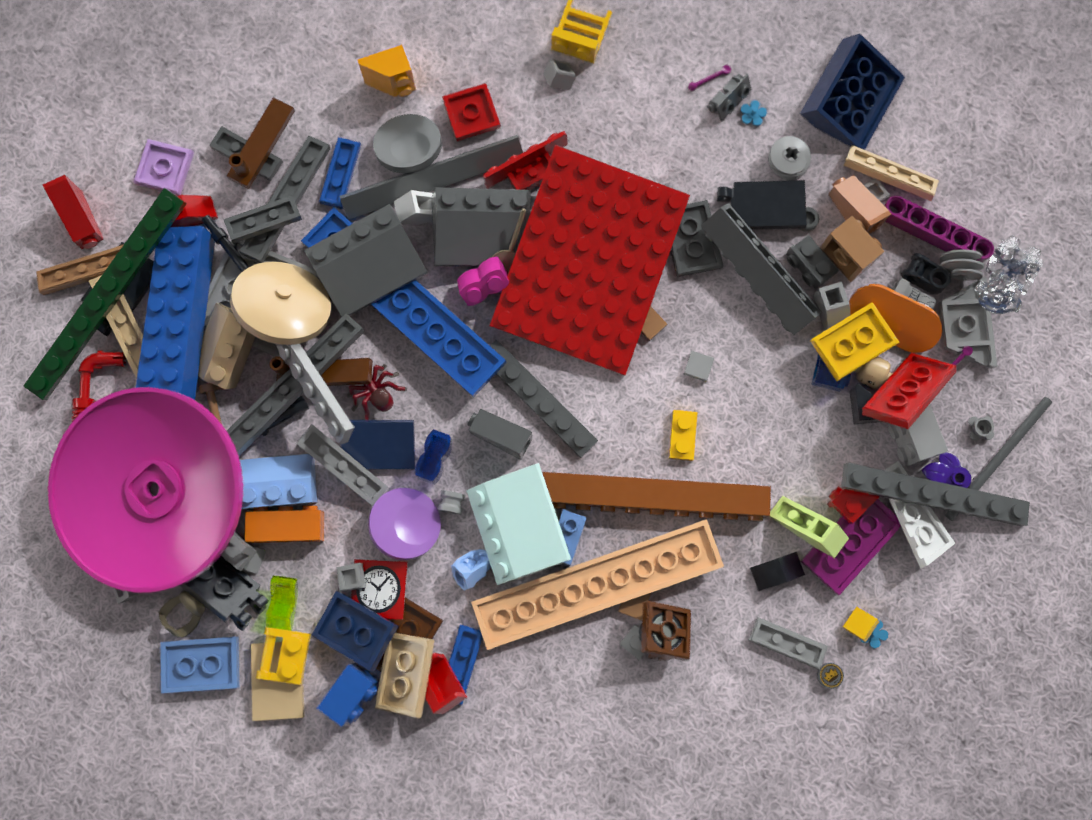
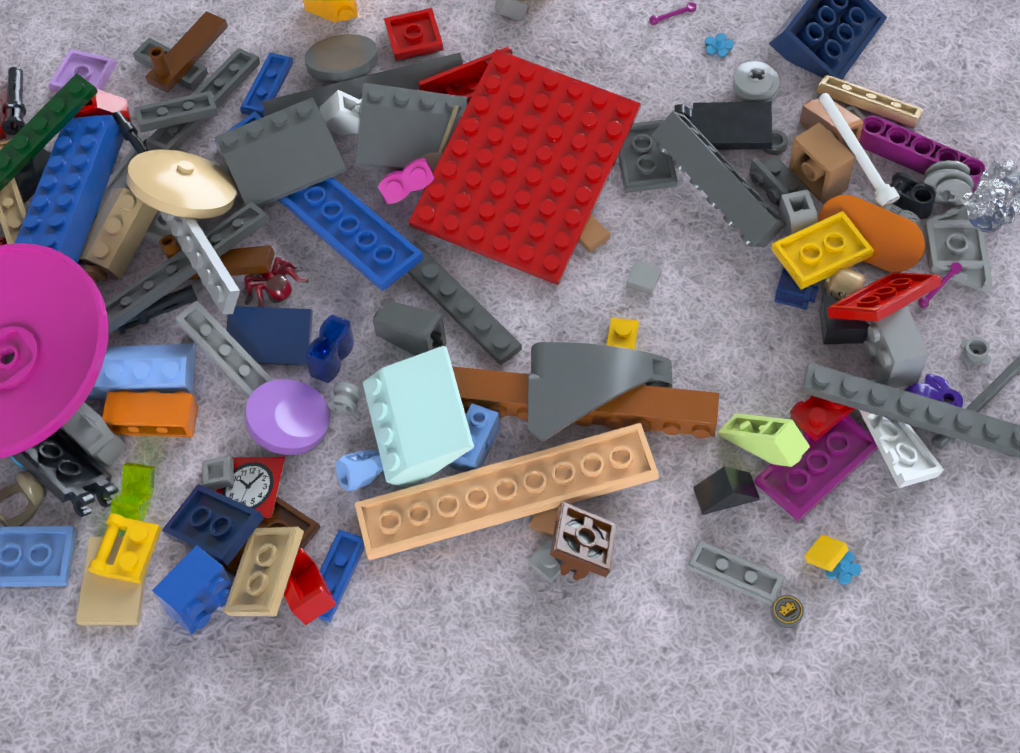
camera: 10 degrees right, 20 degrees down
(106, 210) = (14, 108): none -> black pin
(654, 485) = (580, 377): none -> dark grey panel
(737, 90) = (695, 29): dark grey hinge -> none
(908, 283) = (884, 193): none -> white piece

